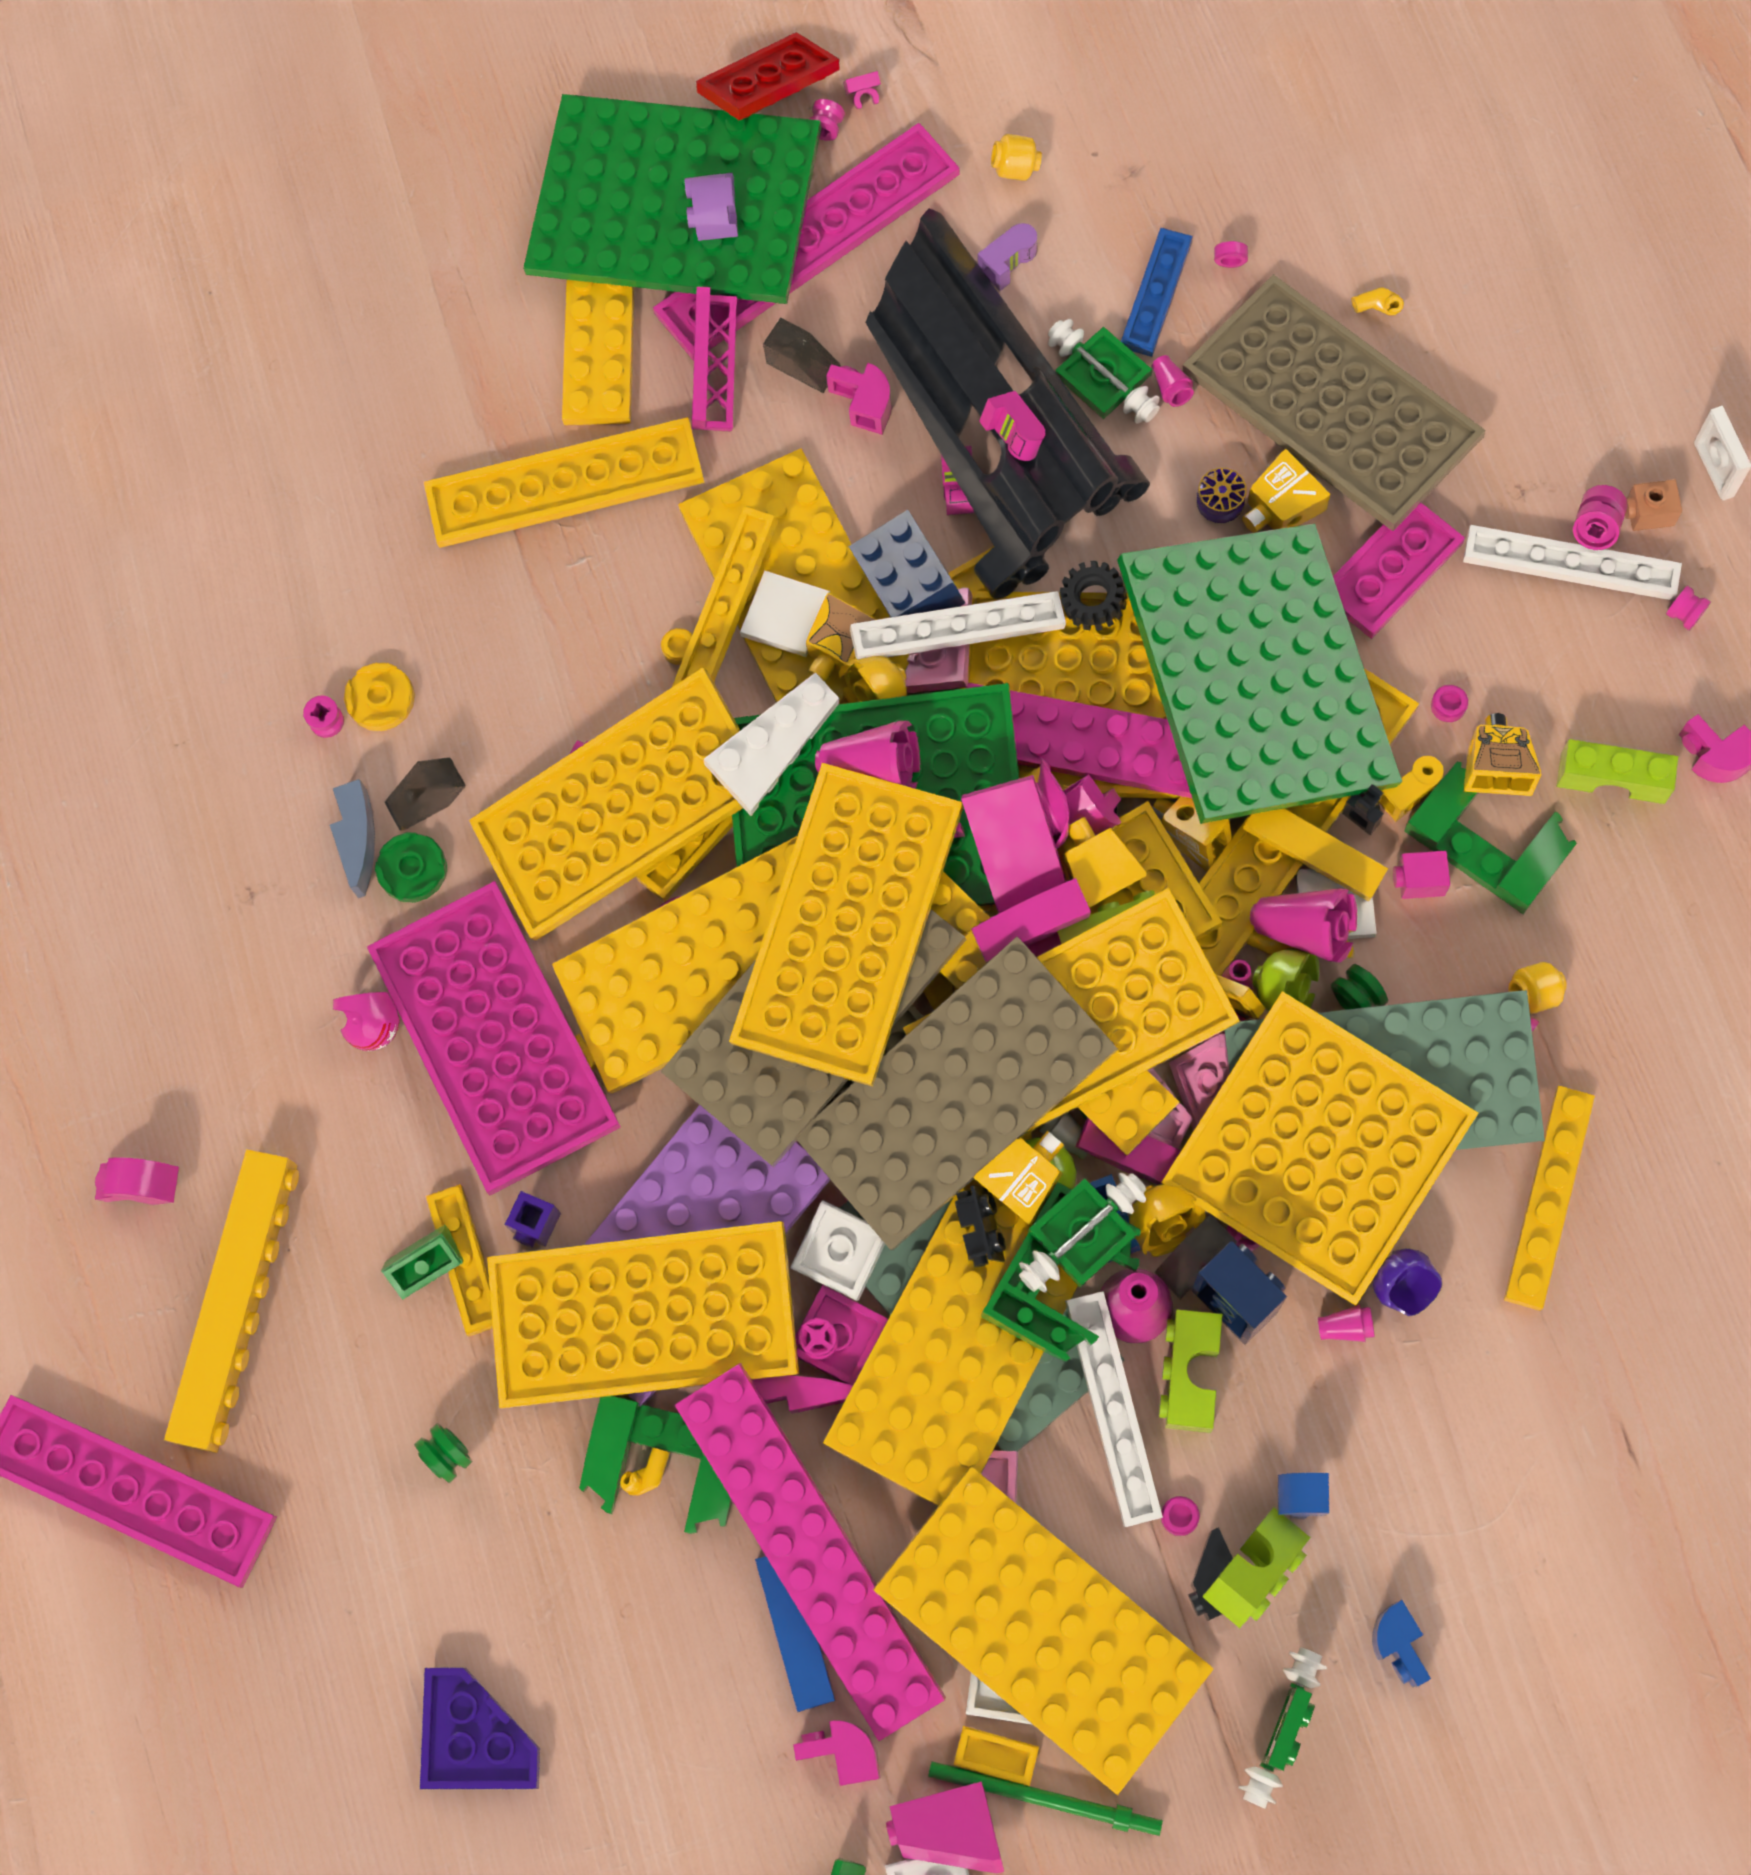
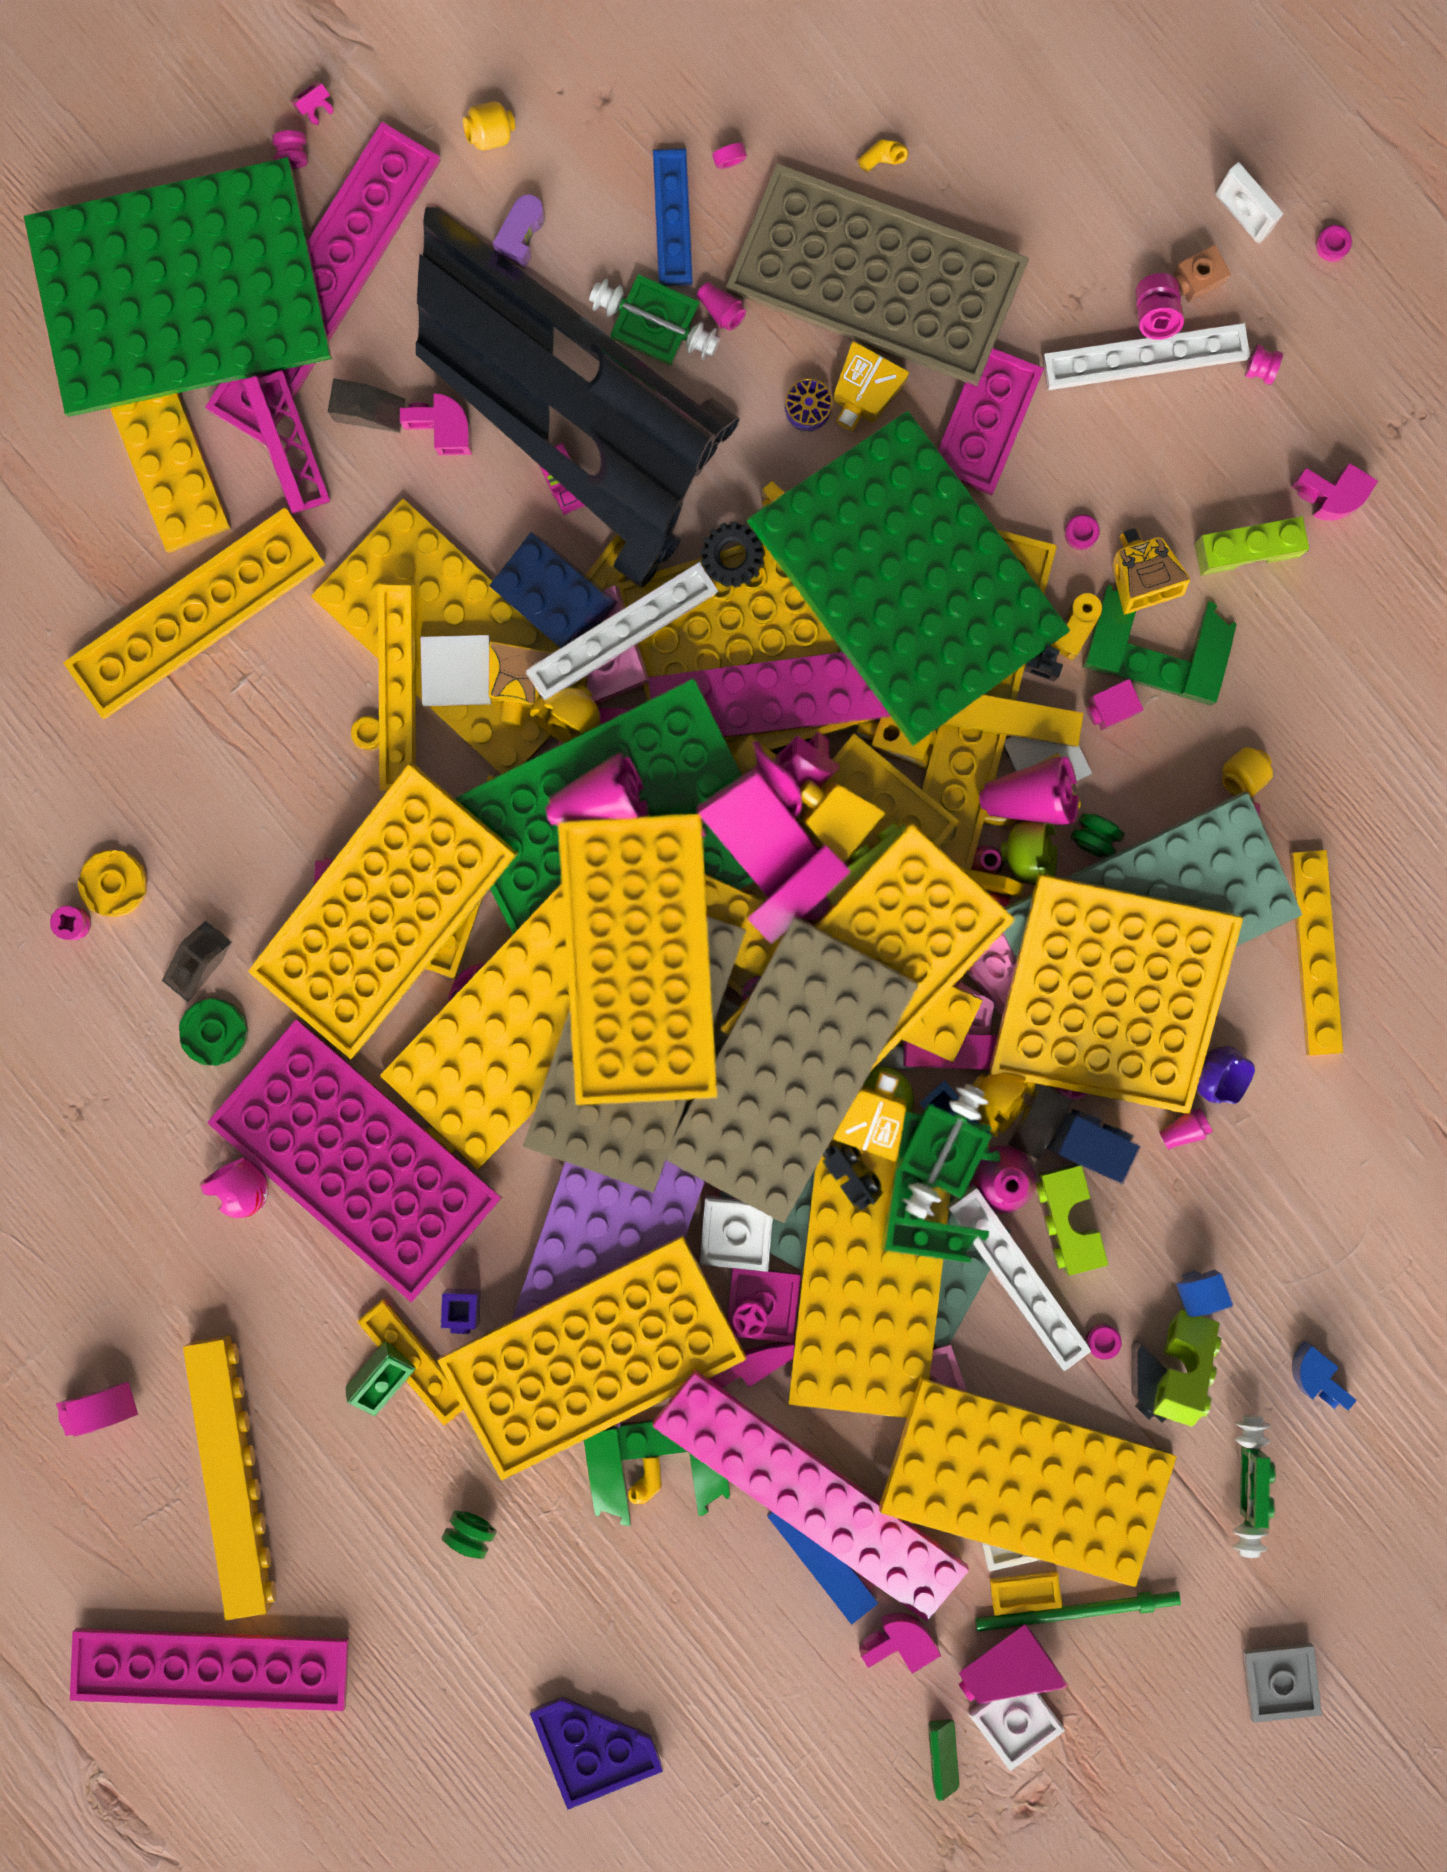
camera: 30 degrees left, 15 degrees up
(355, 835) = (150, 1024): sand blue slope -> none
(713, 206) = (223, 288): medium lavender cylinder -> none
(763, 749) = (498, 822): white wing -> none
(767, 75) = (217, 126): red plate -> none
(1014, 424) = (602, 419): dark pink leg -> none

